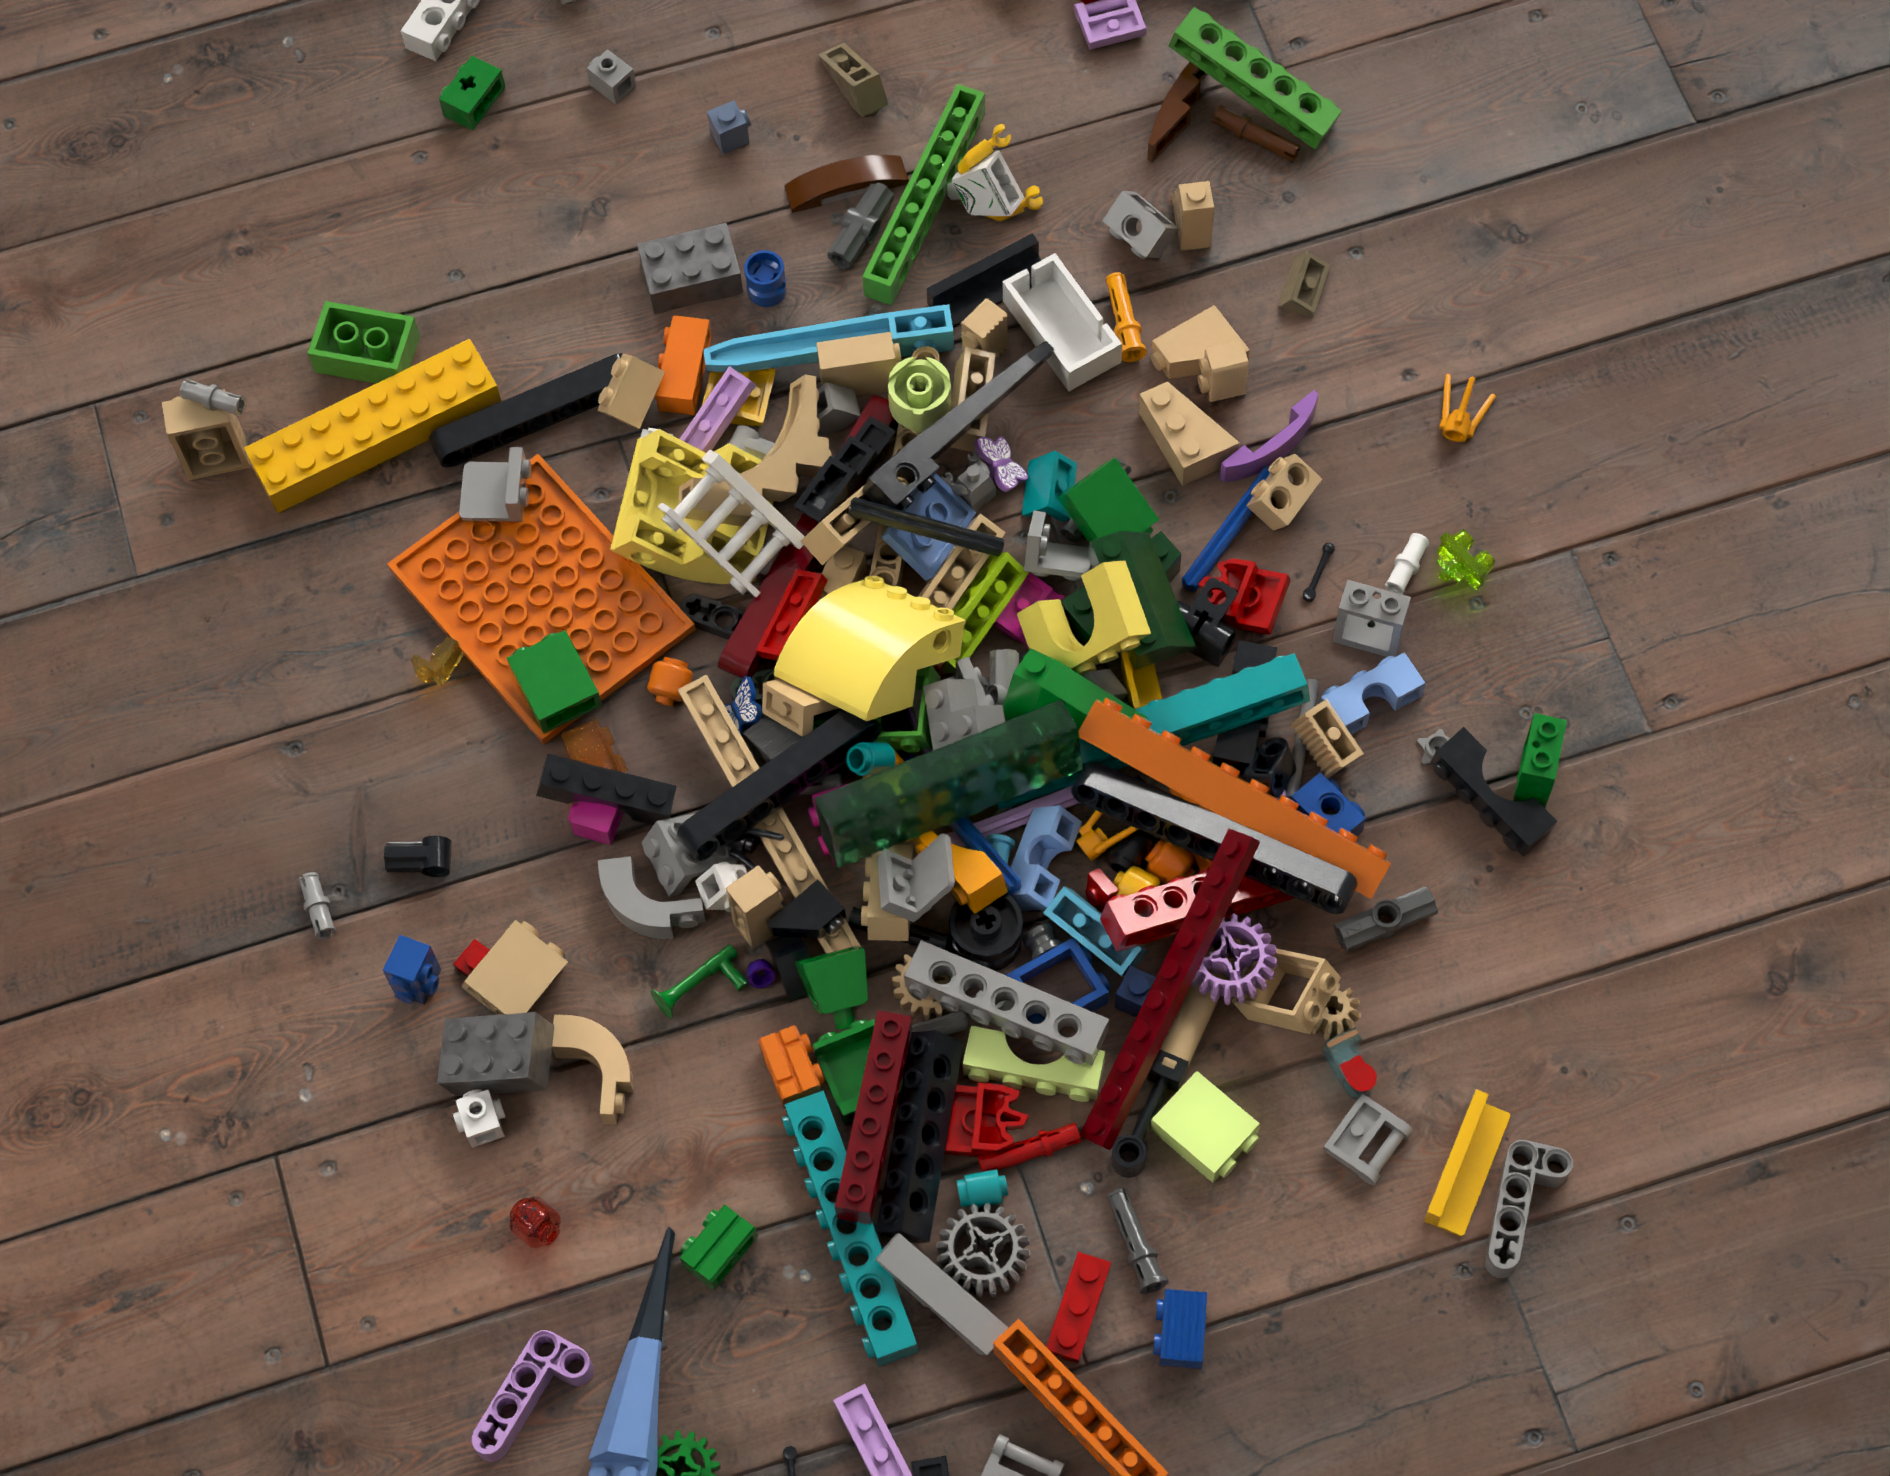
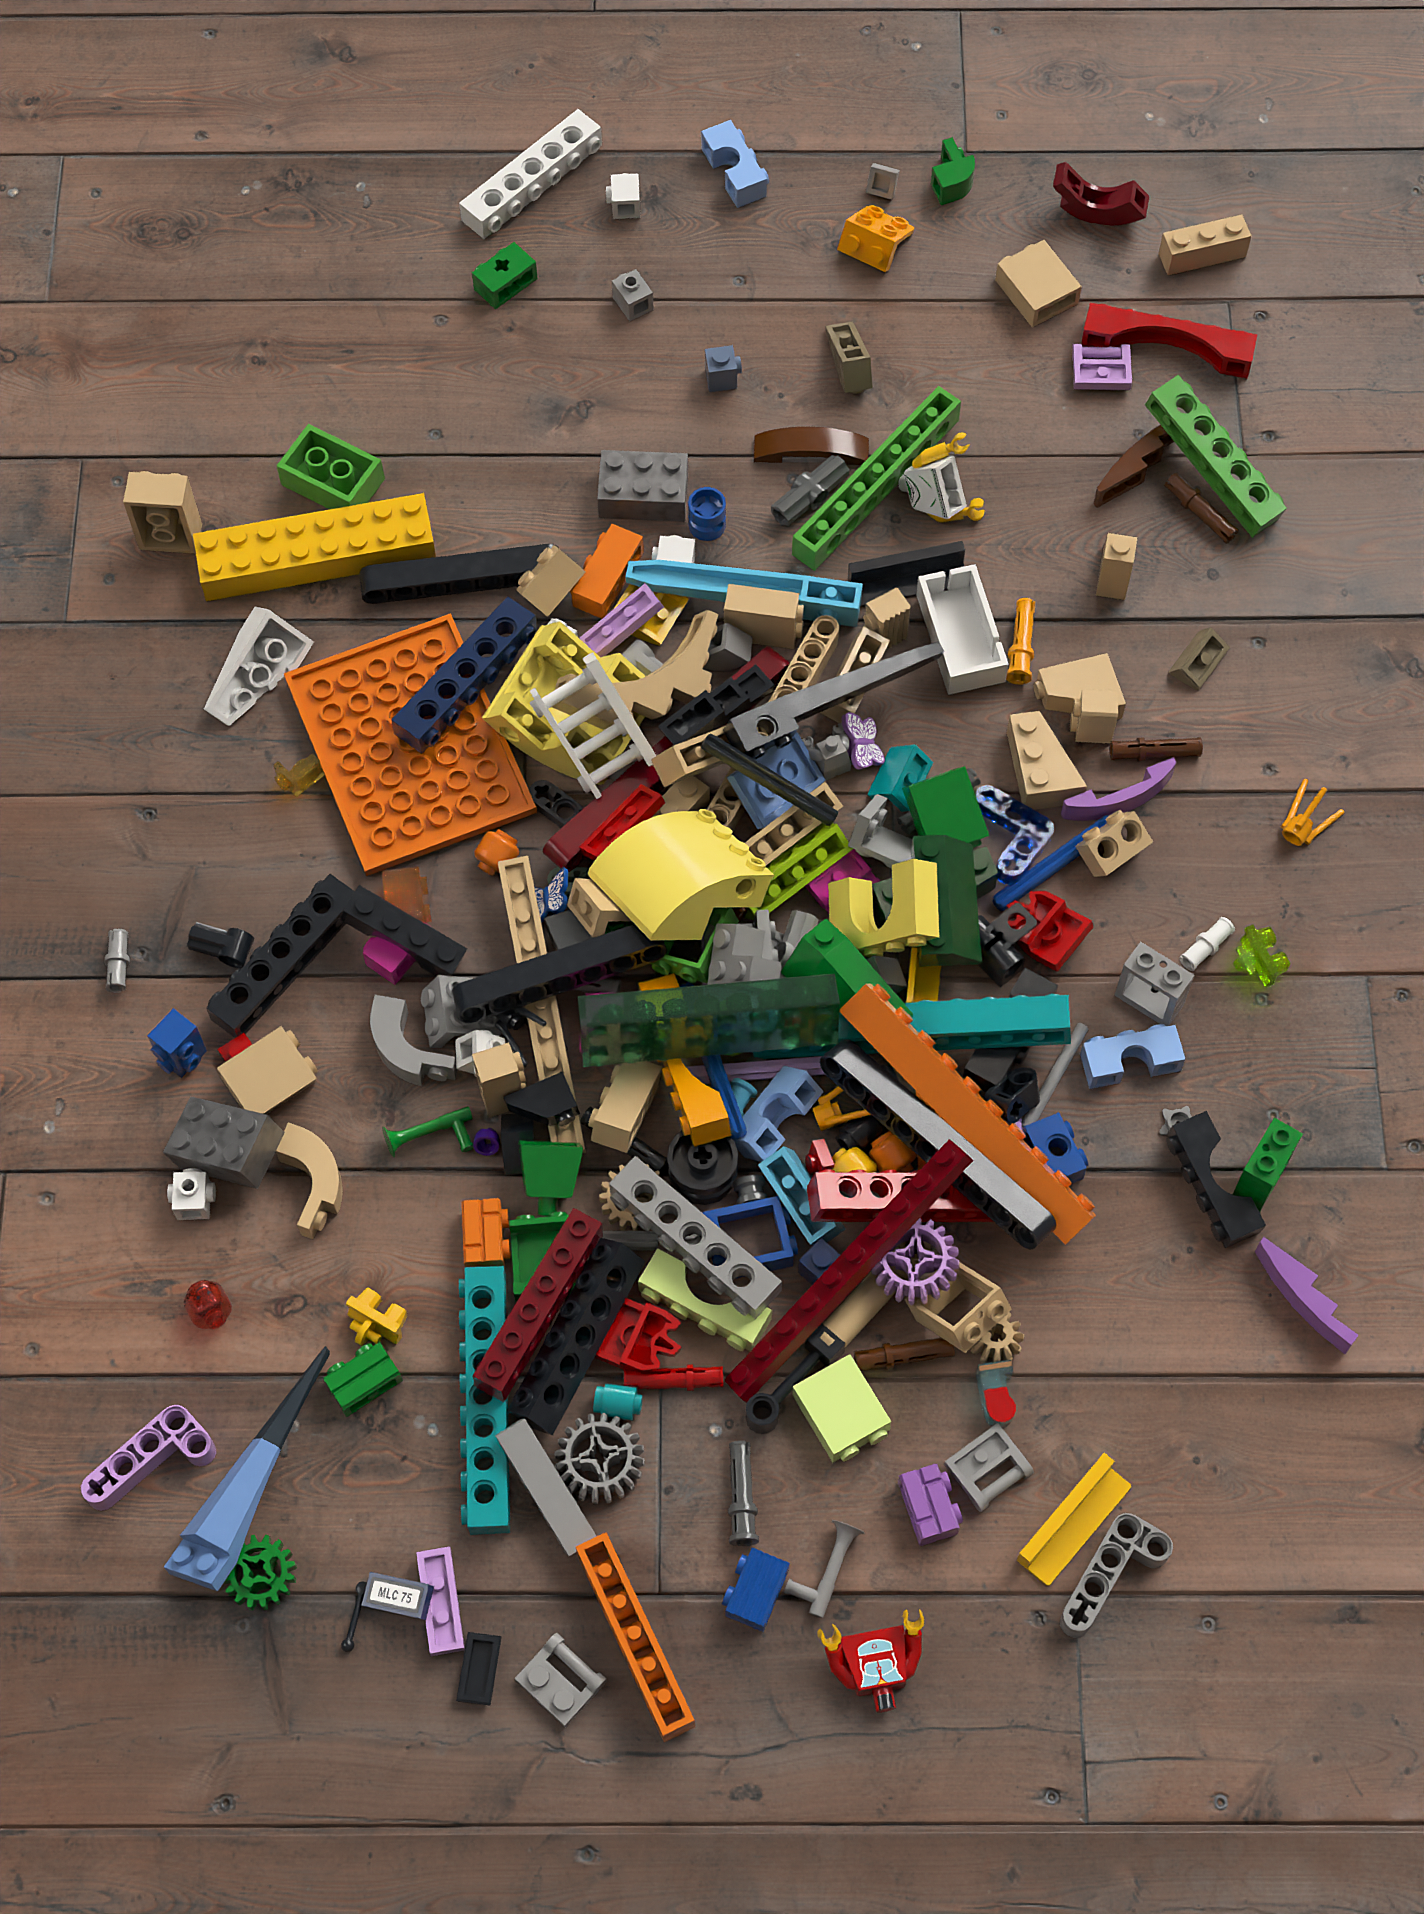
camera: 15 degrees right, 0 degrees up
(213, 397) = (173, 479): light grey pin -> none
(355, 556) = (256, 663): none -> white wedge
(463, 926) = (282, 971): none -> black brick
(496, 489) = (400, 634): light grey bracket -> none
(554, 681) = (391, 821): green brick -> none
(600, 442) = (448, 680): none -> dark blue brick
(709, 1188) = (372, 1324): none -> yellow hips
(745, 323) = (675, 549): none -> white brick
(829, 1448) = (397, 1595): none -> tile
(870, 758) = (647, 975): teal brick -> none
(915, 885) = (646, 1103): light grey bracket -> none
(919, 393) = (806, 655): yellowish green brick -> none
(1078, 1307) = (669, 1538): red plate -> none
(1156, 228) = (1077, 568): light grey brick -> none
(1193, 508) = (1024, 834): none -> clear blue beam
(1235, 1060) = (910, 1352): none -> reddish brown pin
(1248, 1315) = (821, 1597): none -> light grey piece
(1279, 390) = (1161, 748): none -> reddish brown pin
(1309, 593) = (1107, 944): black hinge -> none
(1322, 1359) = (876, 1659): none -> red torso
(1323, 1193) = (929, 1504): none -> medium lavender brick
(1327, 738) = (1075, 1083): tan brick -> none
(1403, 910) = (1095, 1264): dark grey piece -> none
(1604, 871) = (1296, 1284): none -> medium lavender slope

